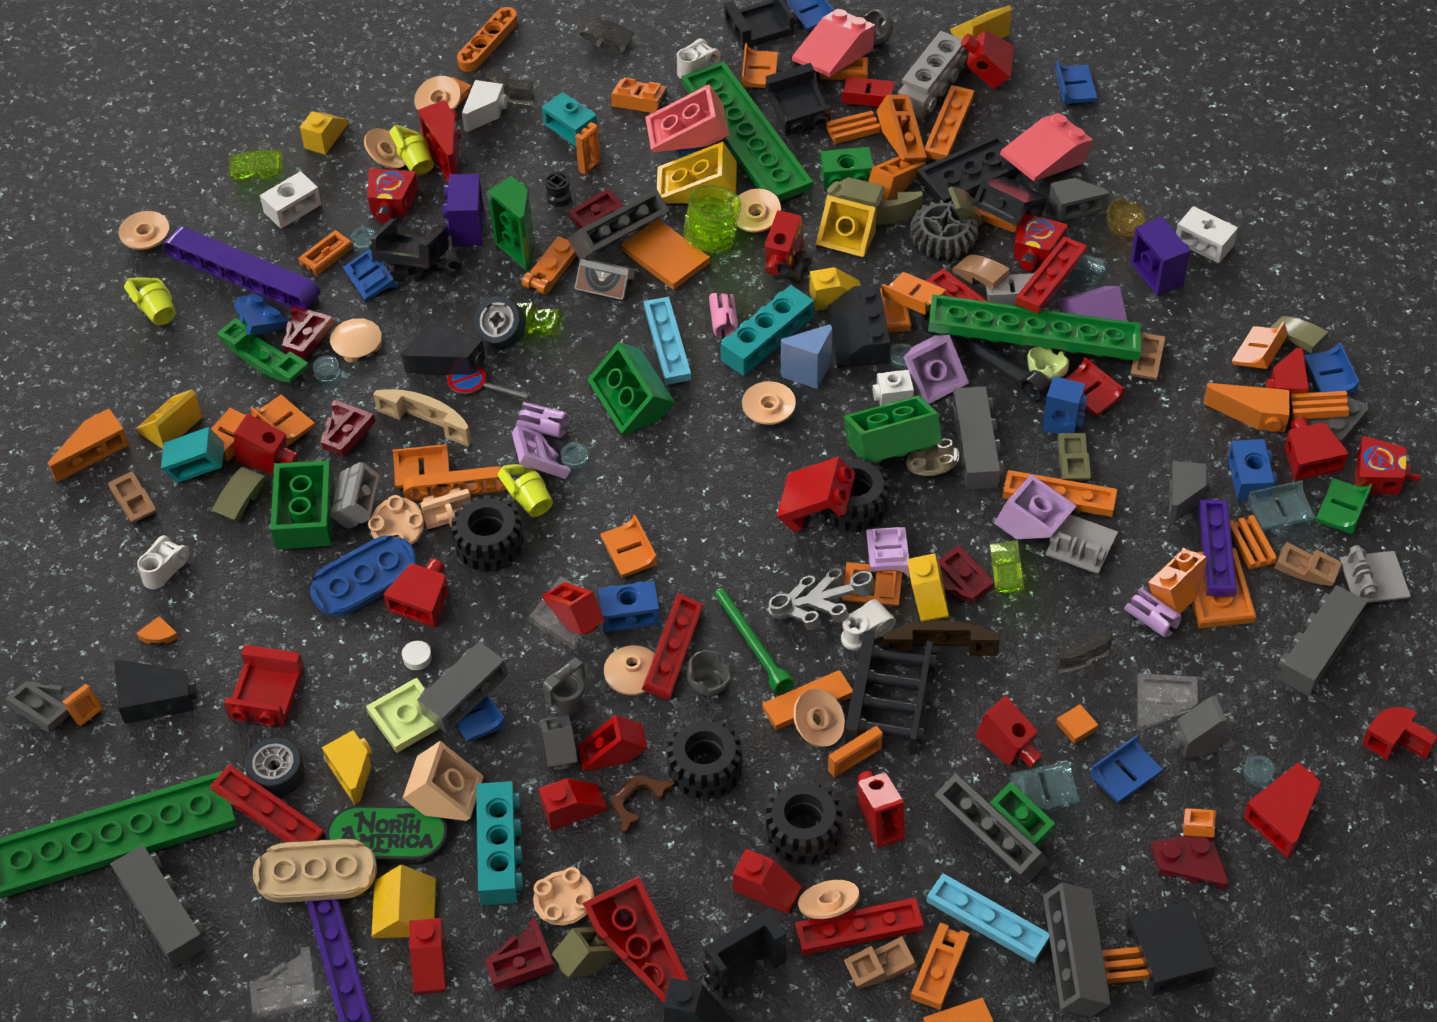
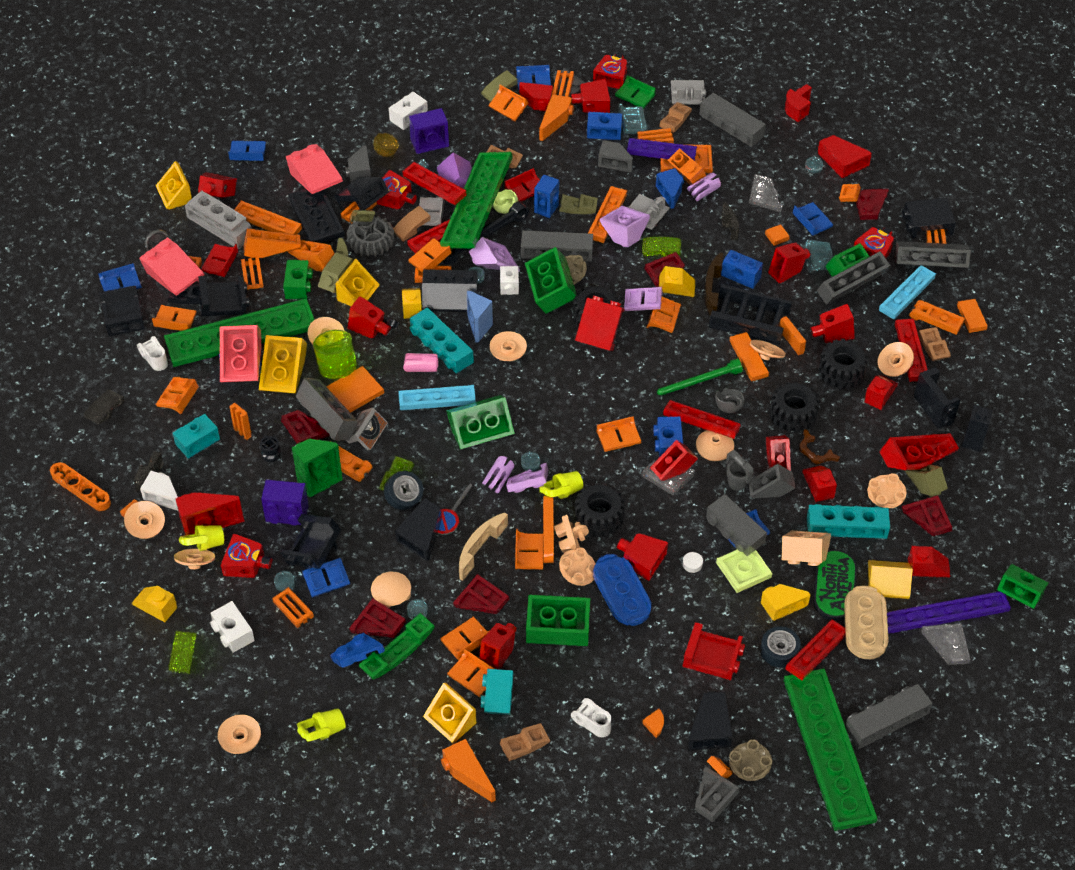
camera: 85 degrees left, 0 degrees up
(95, 742) = (750, 761): none -> dark tan dish
(237, 493) = (534, 666): olive slope -> none
(241, 268) = (299, 665): dark purple beam -> none
(354, 495) = (553, 585): light grey brick -> none
(789, 605) = (678, 337): dark grey plant -> none
(869, 618) = (697, 319): white piece -> none
(980, 673) = (741, 269): none -> blue brick
(1082, 863) = (876, 241): none -> red torso
(1136, 566) = (670, 186): none -> blue slope
(1200, 729) = (793, 176): dark grey slope -> none

